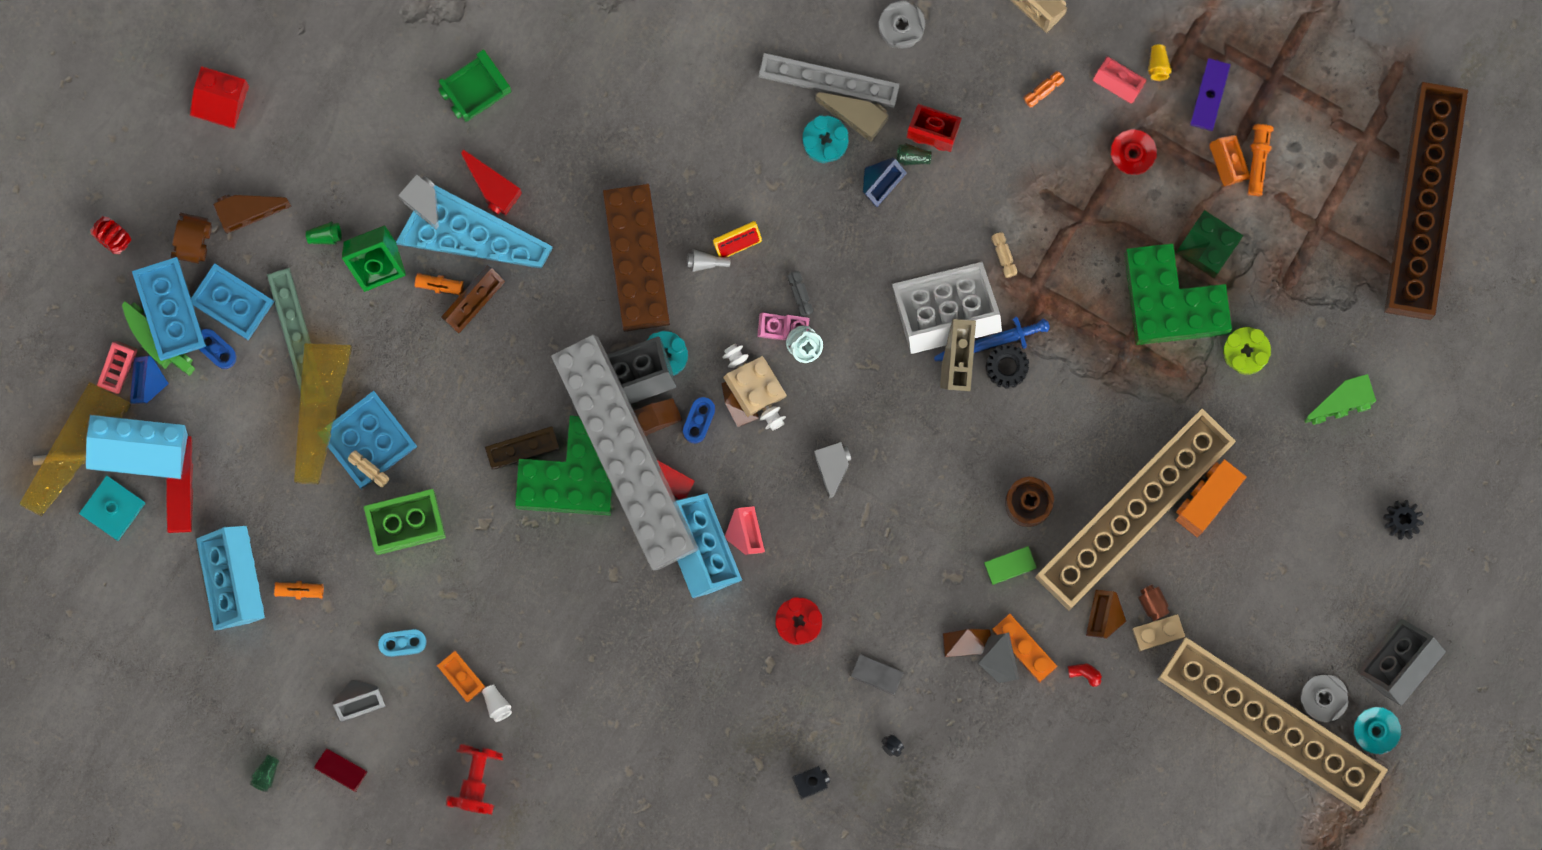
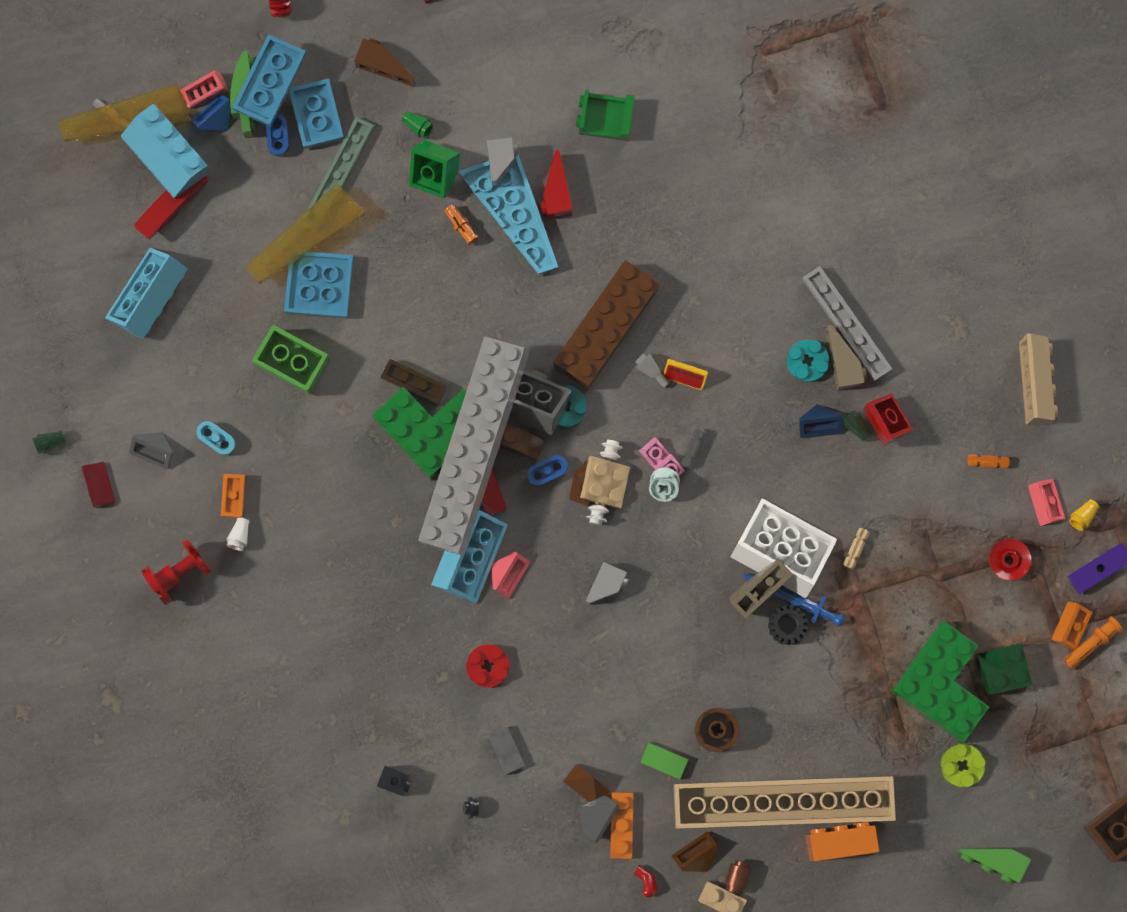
camera: 45 degrees right, 0 degrees up
(112, 508) = (115, 178): teal plate -> none
(190, 238) = (328, 47): reddish brown brick -> none
(315, 590) = (172, 331): orange pin -> none
(368, 468) = (300, 303): tan axle -> none
(473, 299) = (473, 254): reddish brown plate -> none
(895, 36) = (920, 336): light grey plate -> none

